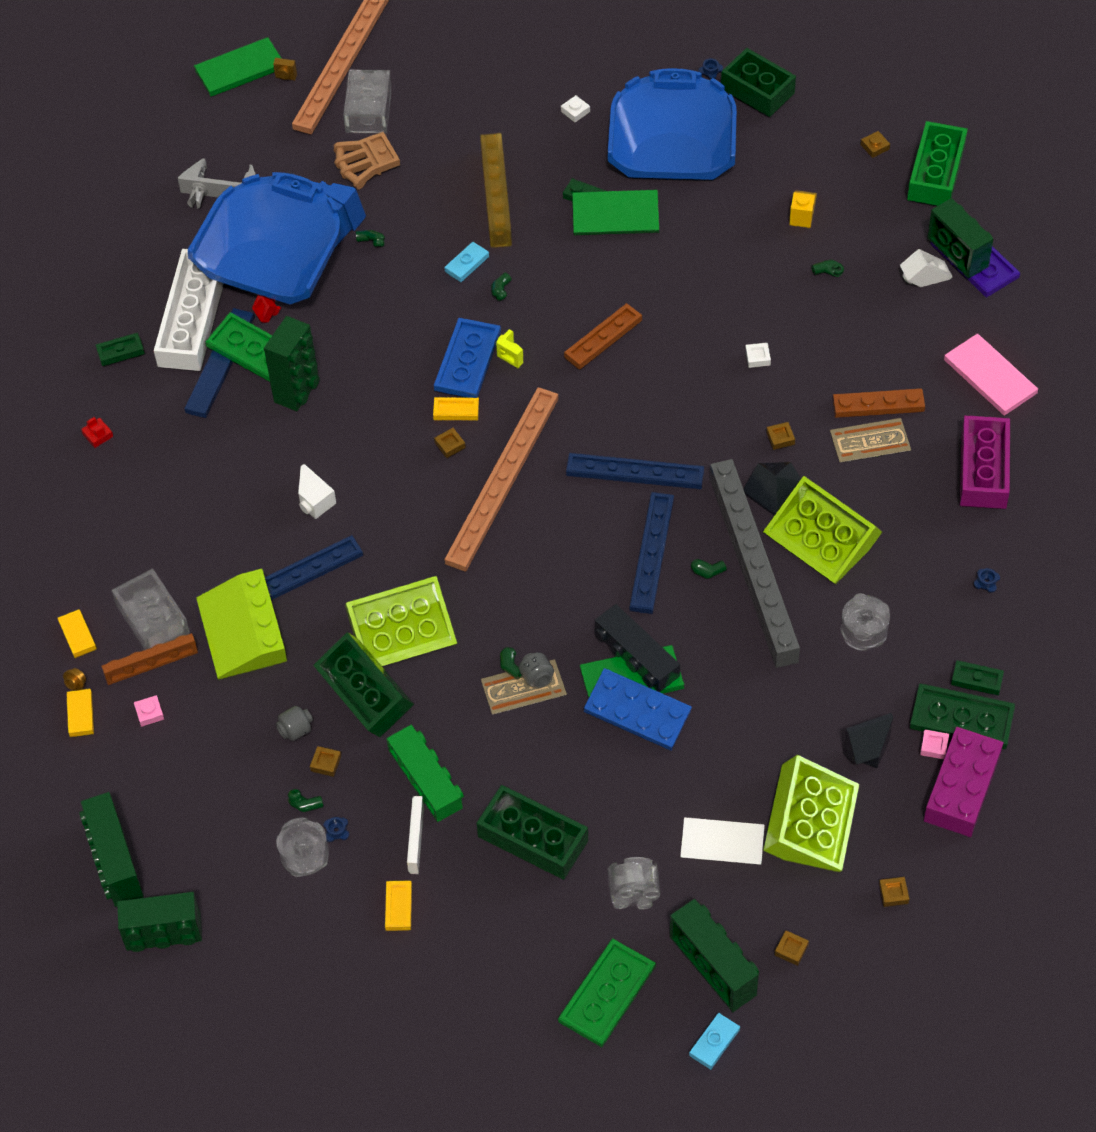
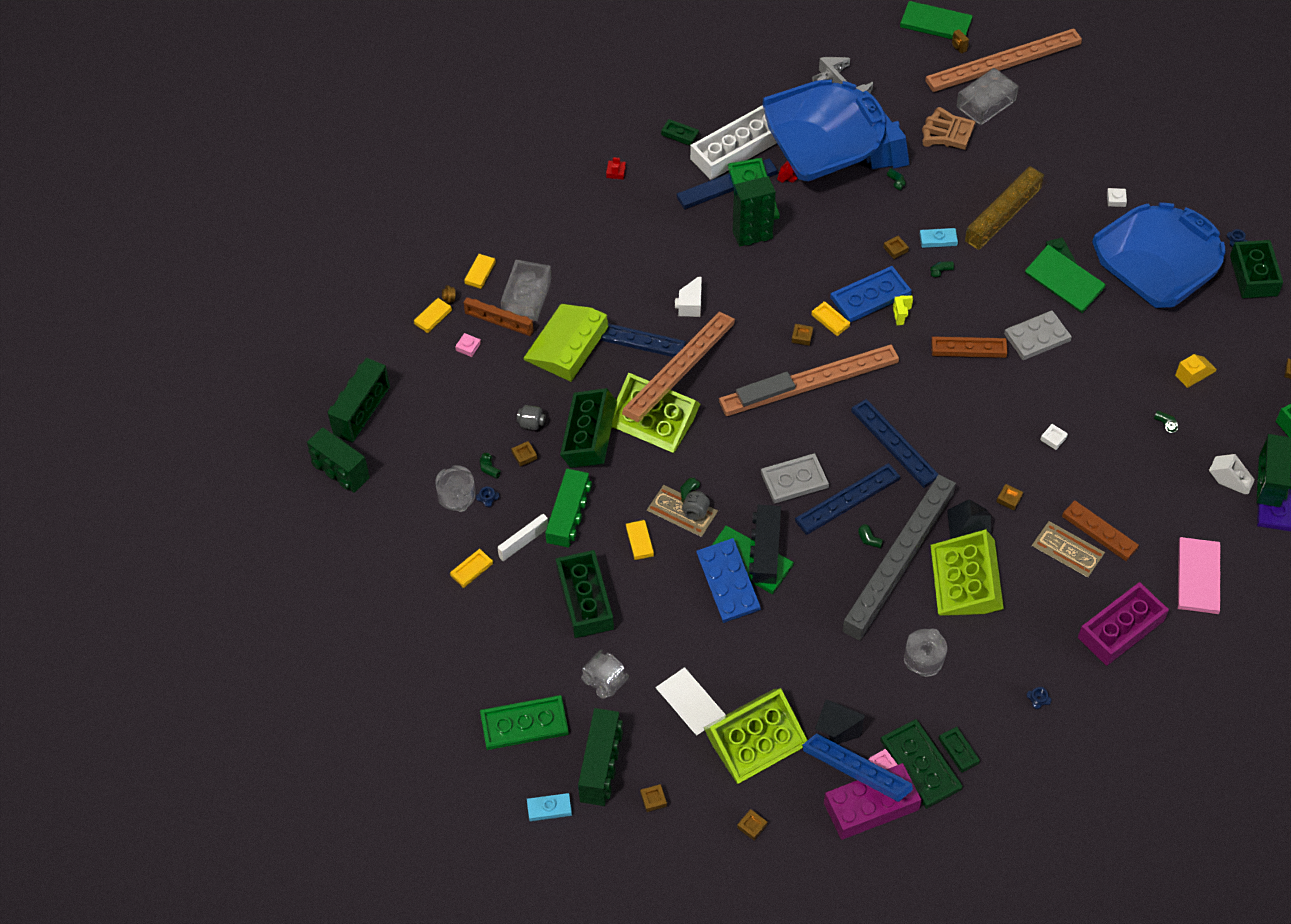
camera: 45 degrees right, 0 degrees up
(386, 560) = (678, 367): none -> nougat plate
(441, 299) = (895, 247): none -> pearl gold plate
(478, 516) = (765, 389): none -> dark grey tile
(518, 744) = (639, 540): none -> yellow tile
(589, 573) = (794, 478): none -> light grey plate
(645, 280) = (1037, 335): none -> light grey plate
(929, 762) = (857, 767): none -> blue plate

